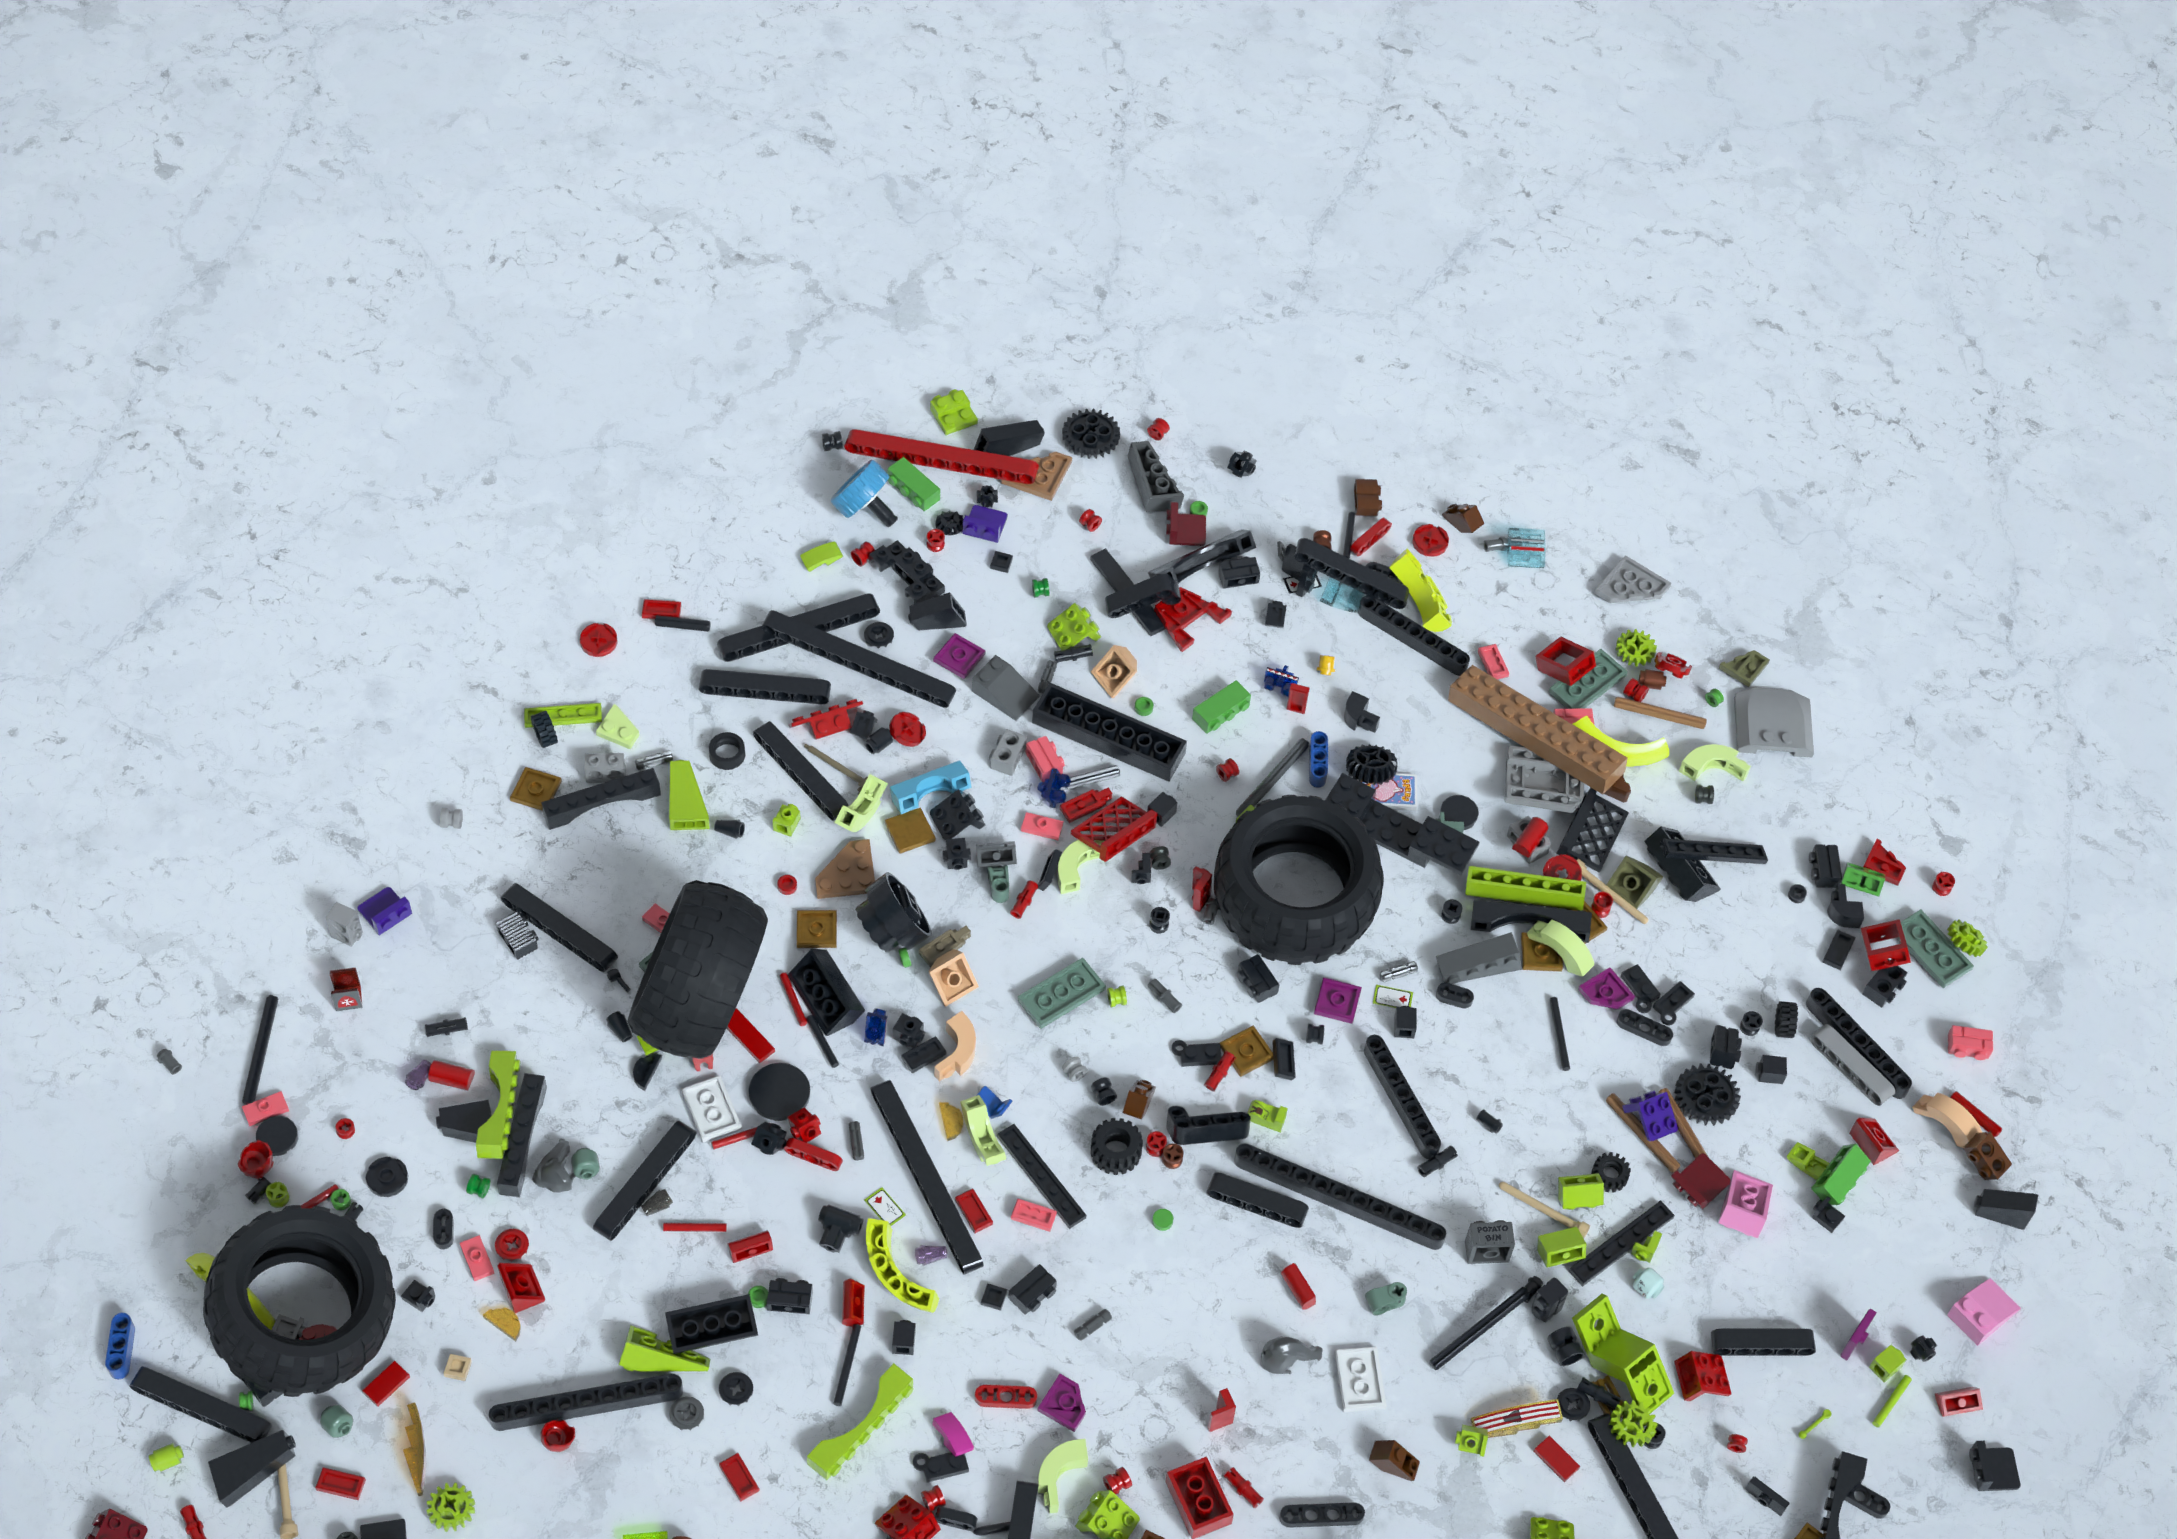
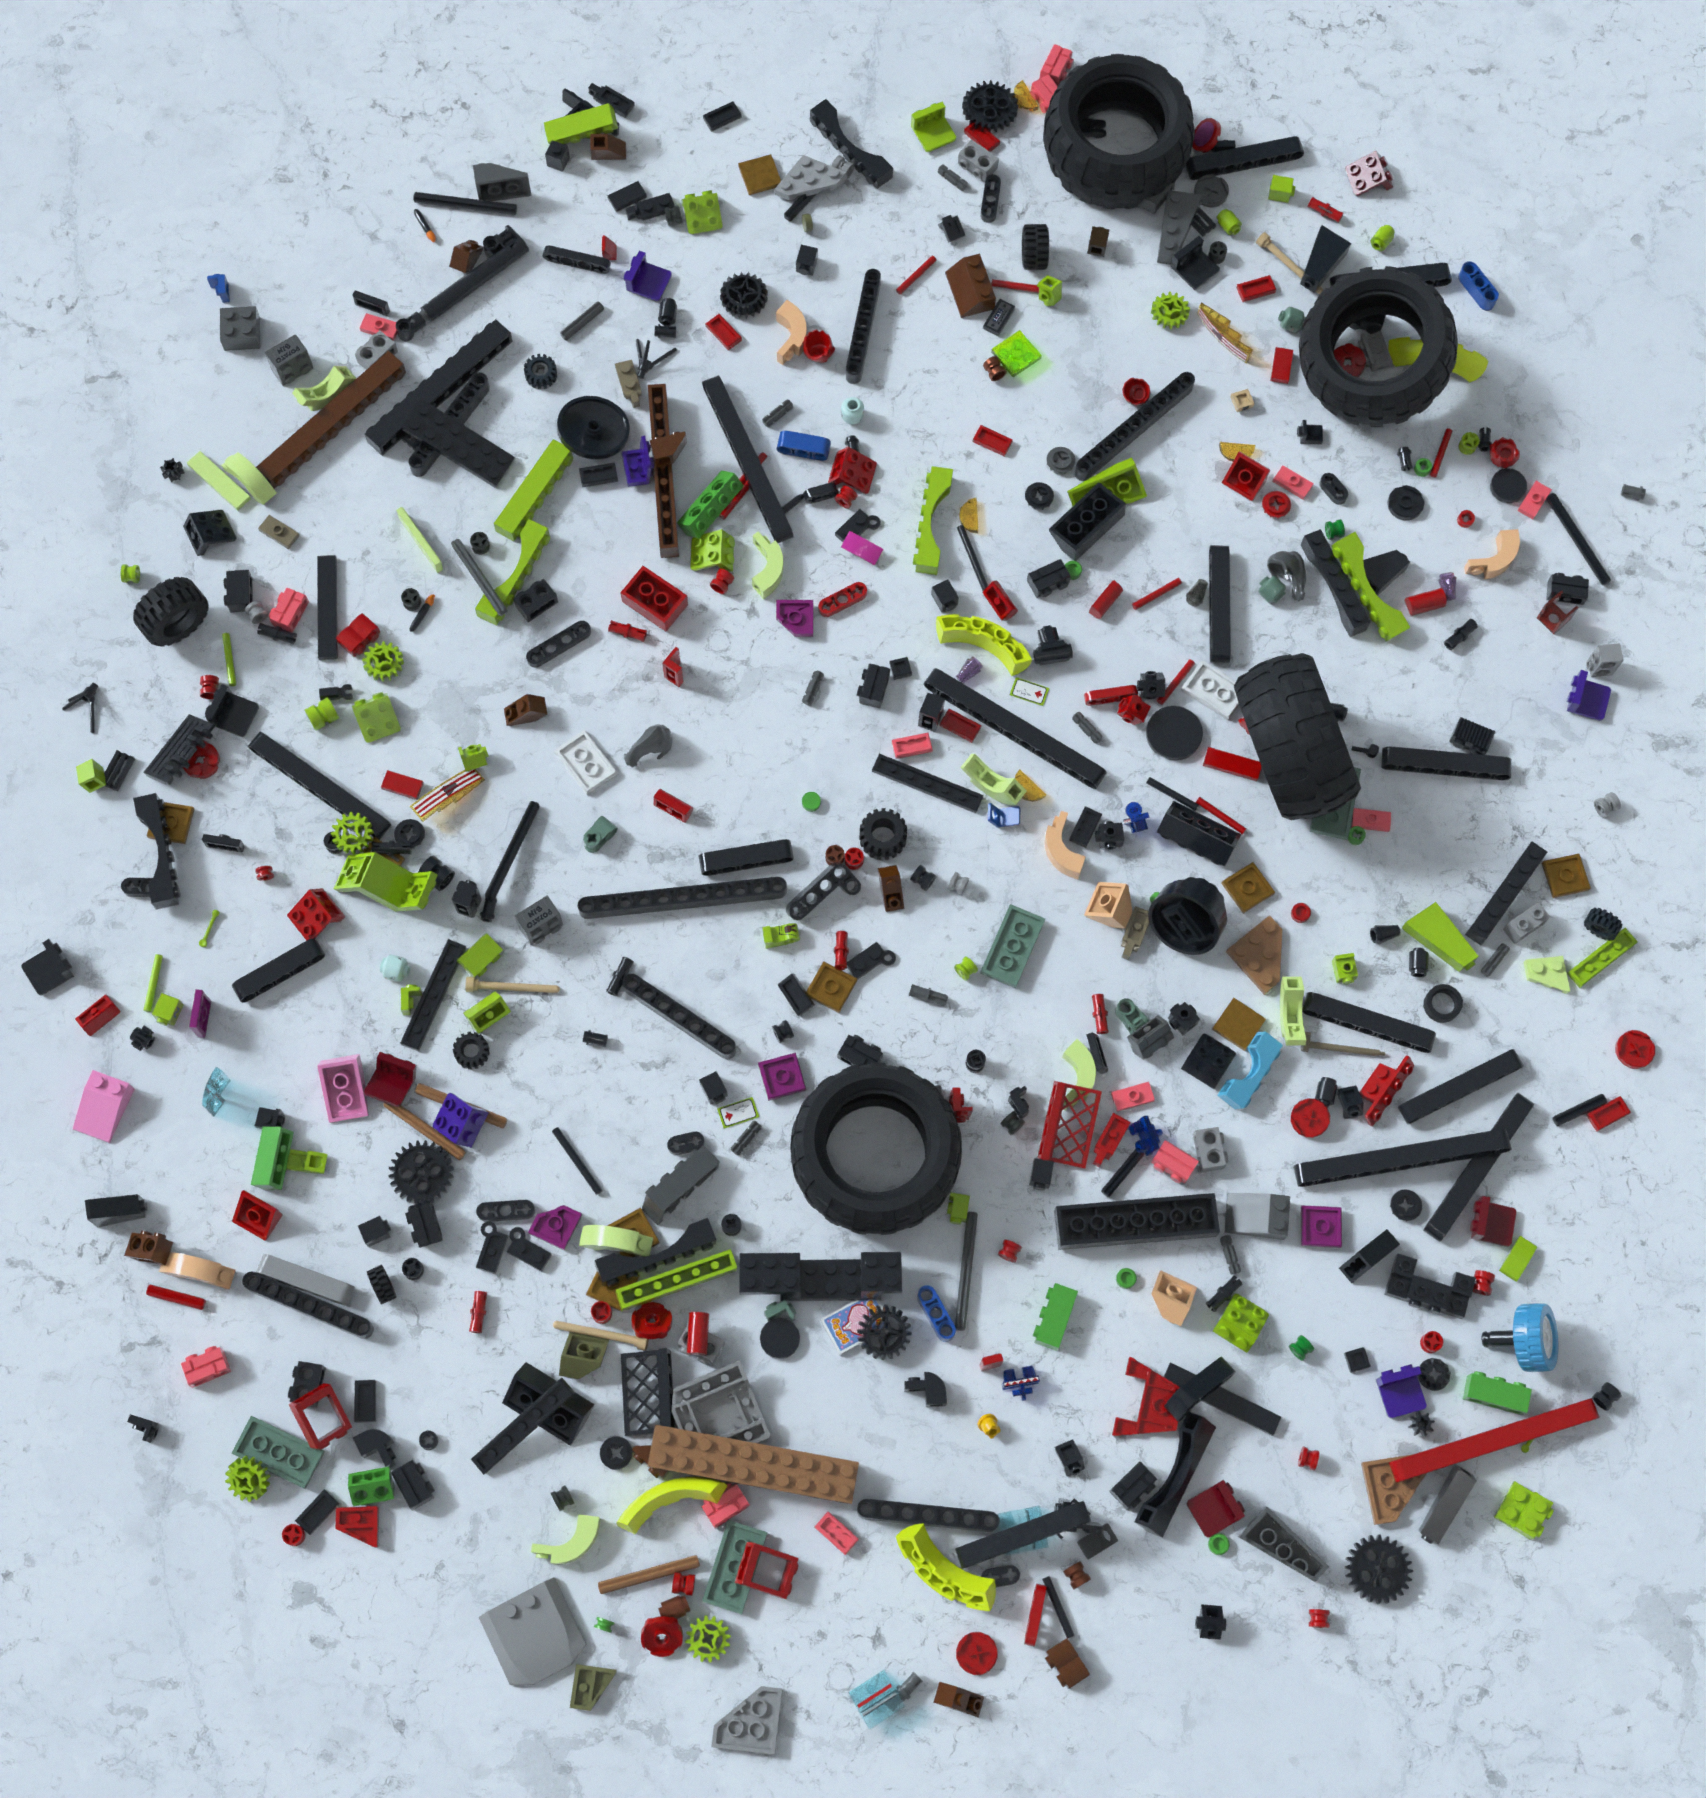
camera: 150 degrees right, 15 degrees up
(314, 1009) = (1573, 588): none -> black brick
(347, 1068) = (1507, 546): none -> light nougat arch
(721, 790) = (1418, 962): none -> black brick
(820, 1411) = (968, 515): none -> clear yellow tile
(821, 586) = (1493, 1222): none -> dark red bracket
(997, 1226) = (931, 712): none -> black brick
(1646, 798) = (626, 1452): none -> black gear
(1709, 961) = (478, 1312): none -> red pin
(1871, 1257) = (212, 1097): none -> clear light blue slope
(1916, 892) = (317, 1512): none -> black tile
(2042, 1027) = (141, 1423): none -> black bracket

